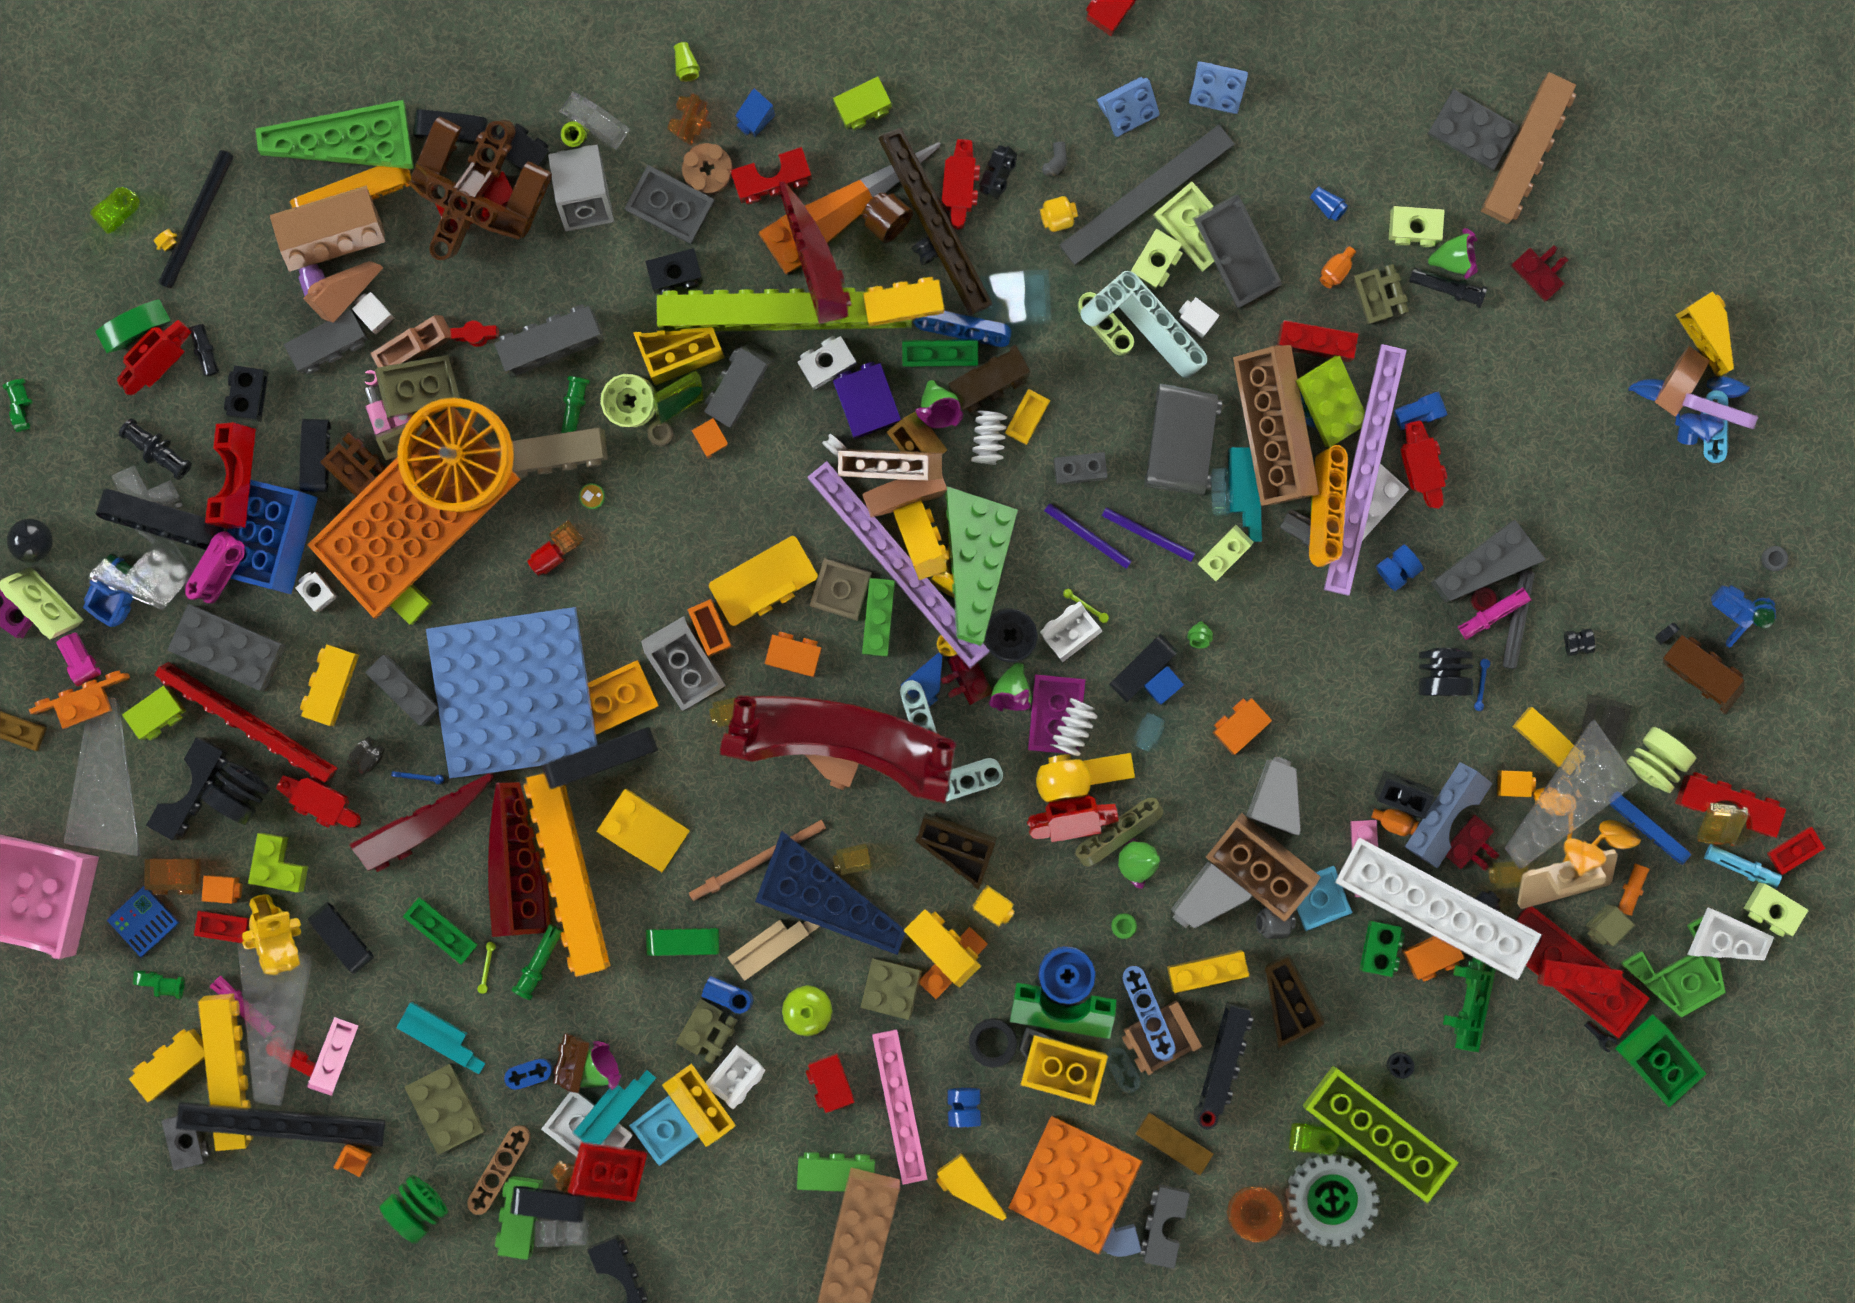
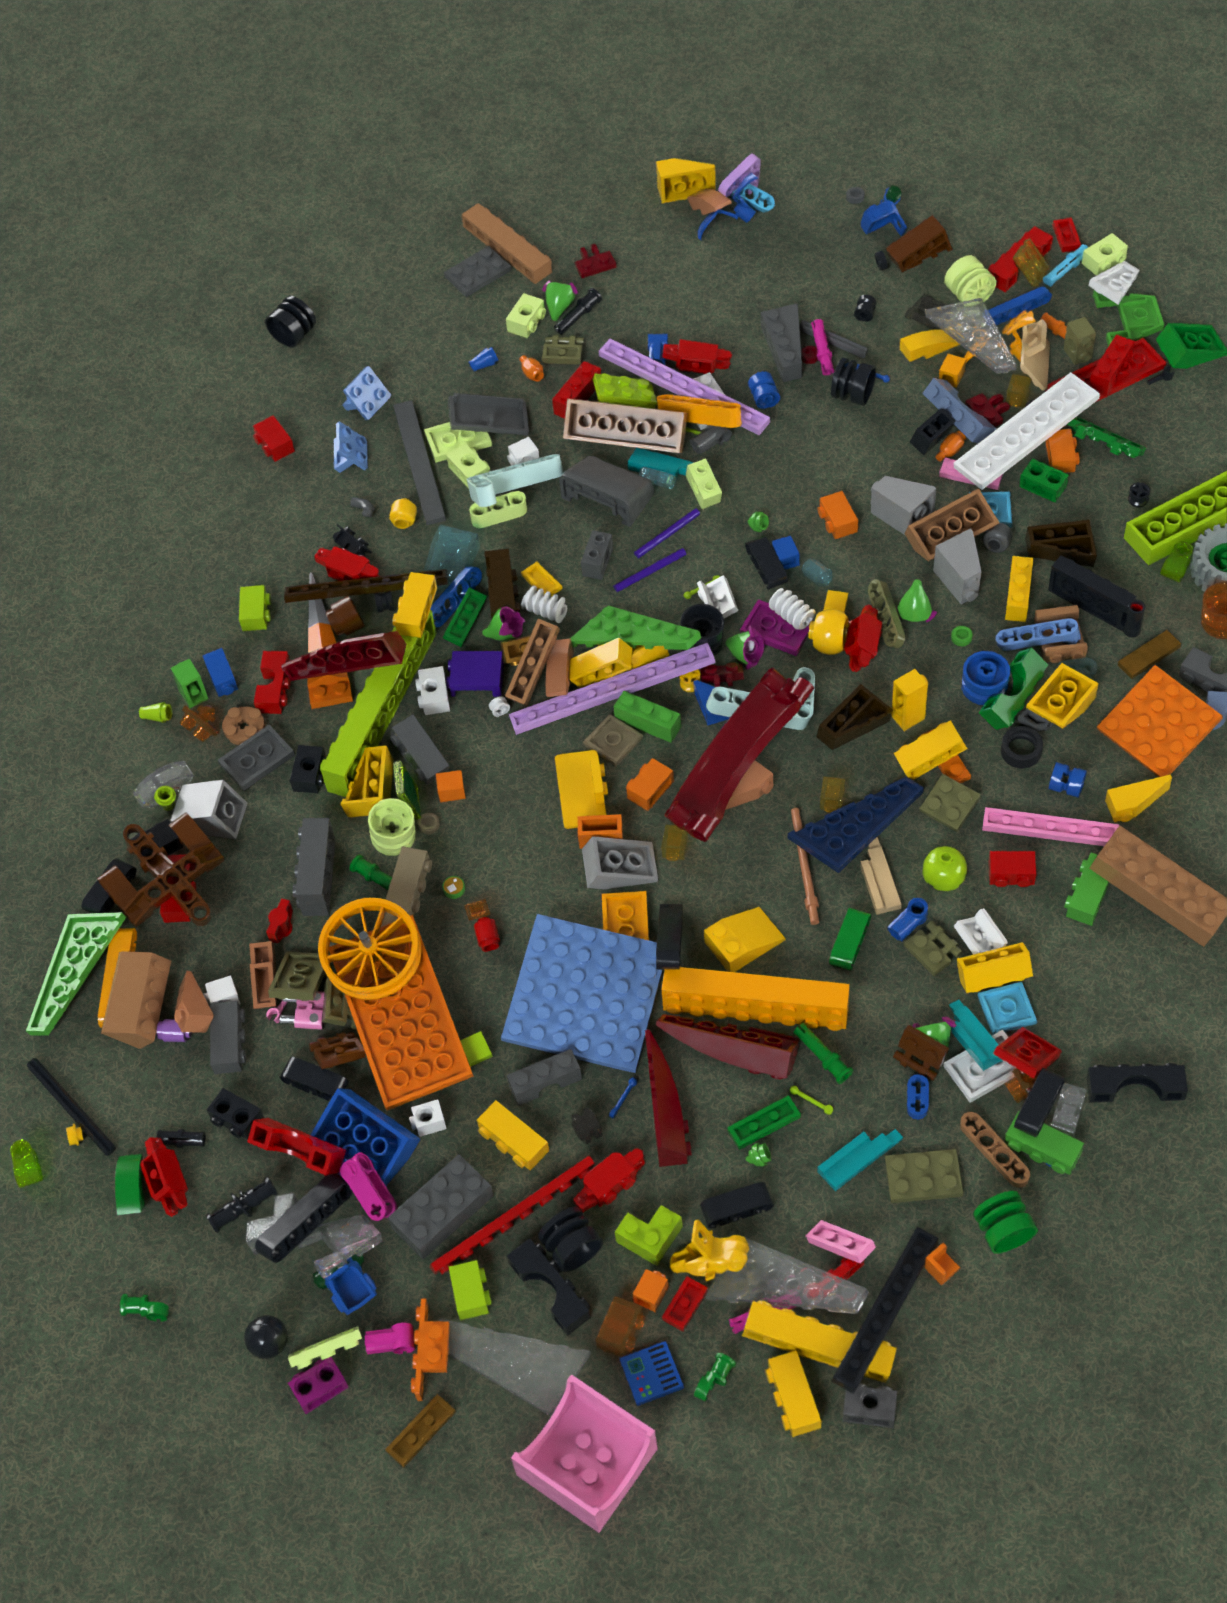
camera: 65 degrees left, 30 degrees down
(403, 939) = (759, 1155): none -> bright green plate
(727, 84) = (189, 683): none -> bright green brick

